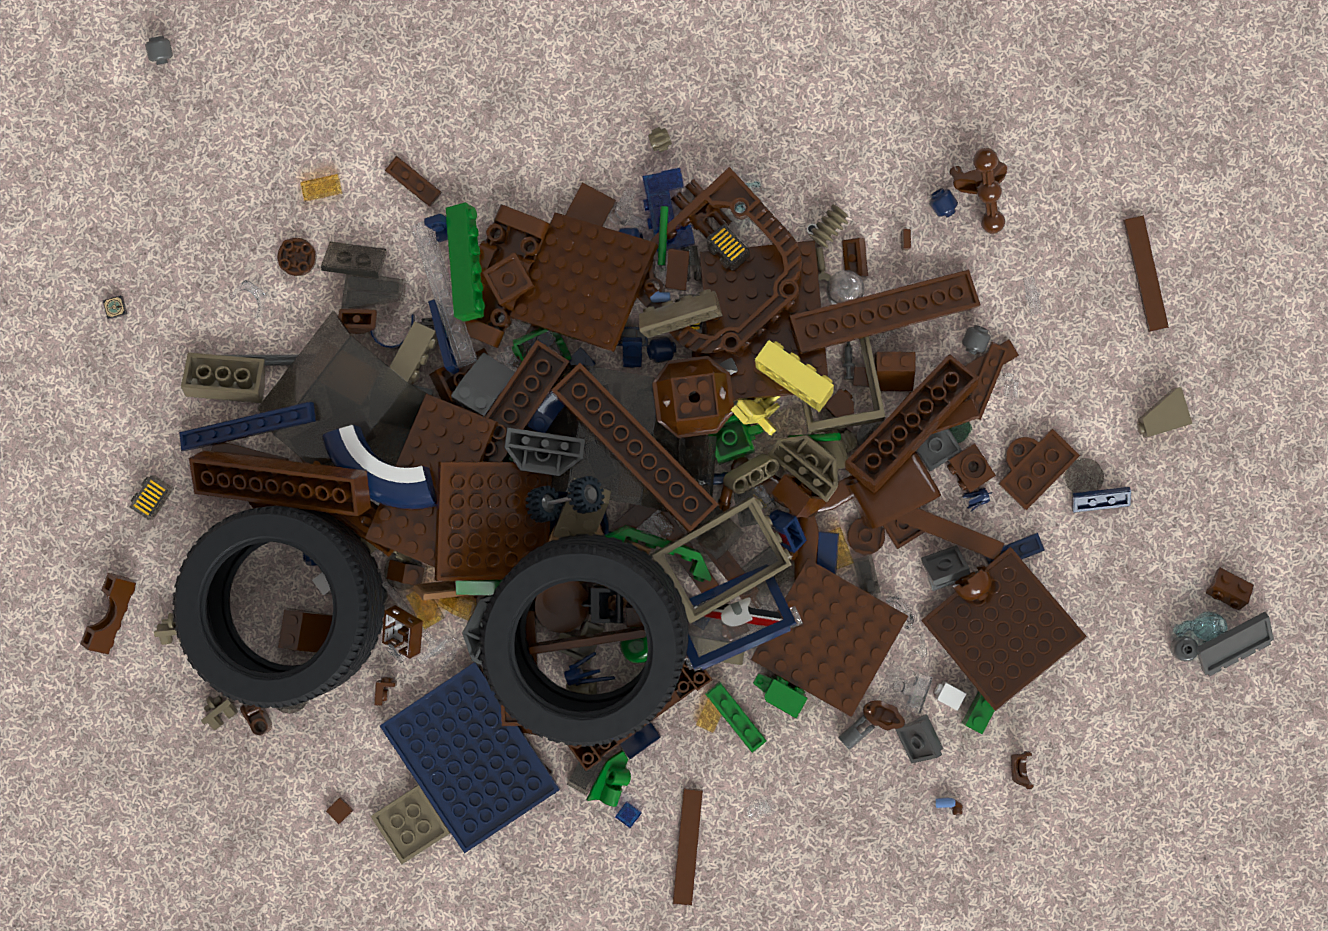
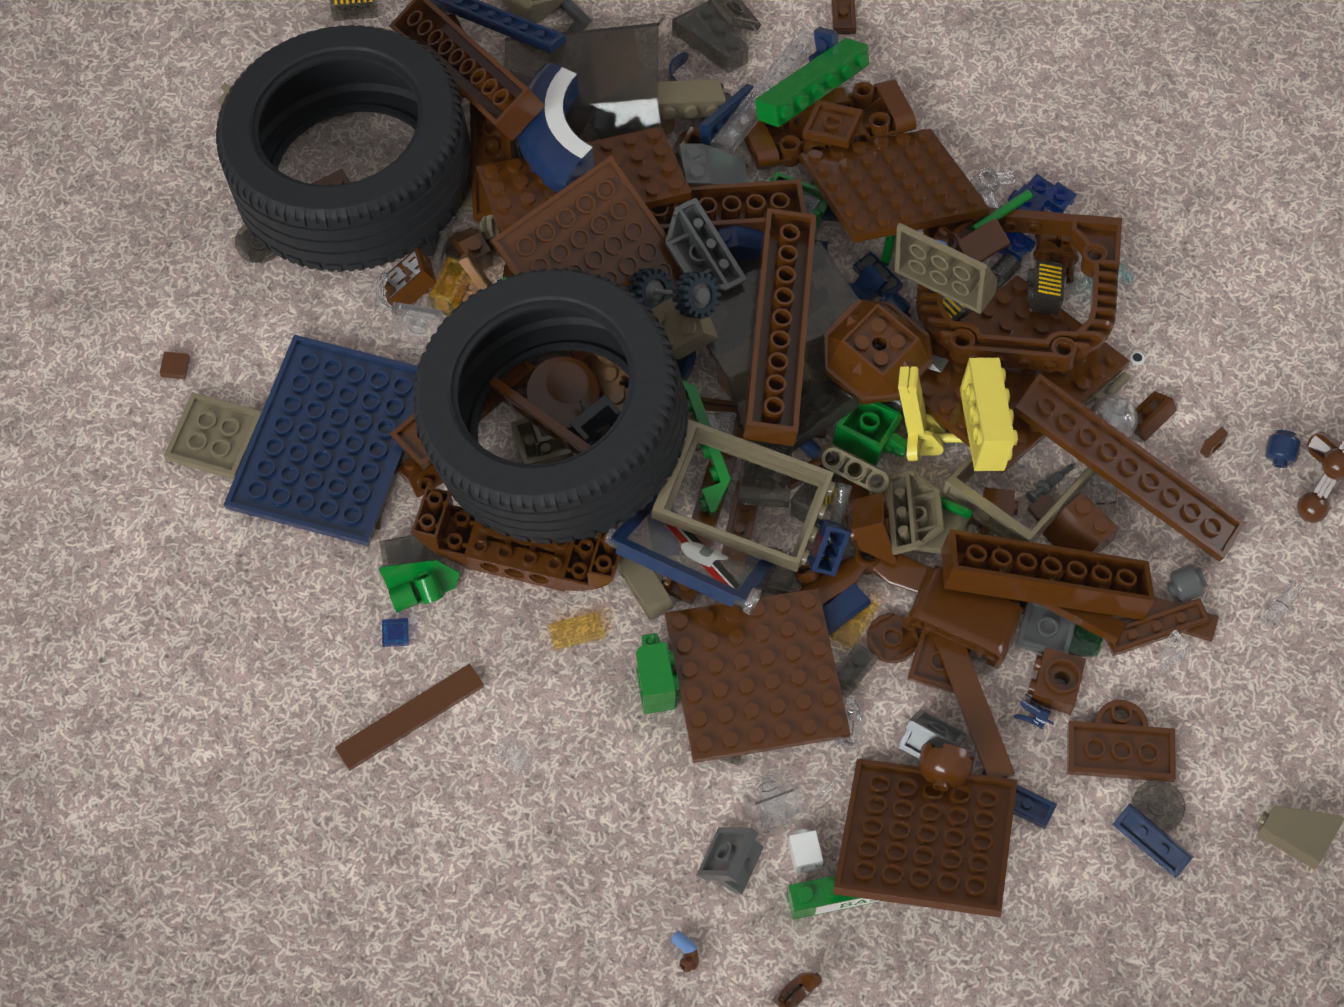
camera: 45 degrees right, 25 degrees down
(102, 634) = (239, 32): reddish brown arch -> none
(213, 718) = (192, 189): dark tan hips -> none
(254, 716) = (213, 225): reddish brown piece -> none
(358, 320) = (674, 39): reddish brown slope -> none
(381, 693) = (330, 312): reddish brown bracket -> none
(576, 675) = (505, 445): dark blue plant -> none
(591, 205) = (968, 153): reddish brown tile -> none
(640, 740) = (485, 584): dark blue slope -> none
(659, 139) = (1084, 163): dark tan gear -> none
(735, 717) = (590, 655): green tile -> none
(829, 226) = (1155, 363): dark tan piece -> none
(852, 735) = (673, 788): dark grey hinge -> none
(883, 715) = (722, 798): reddish brown arm -> none

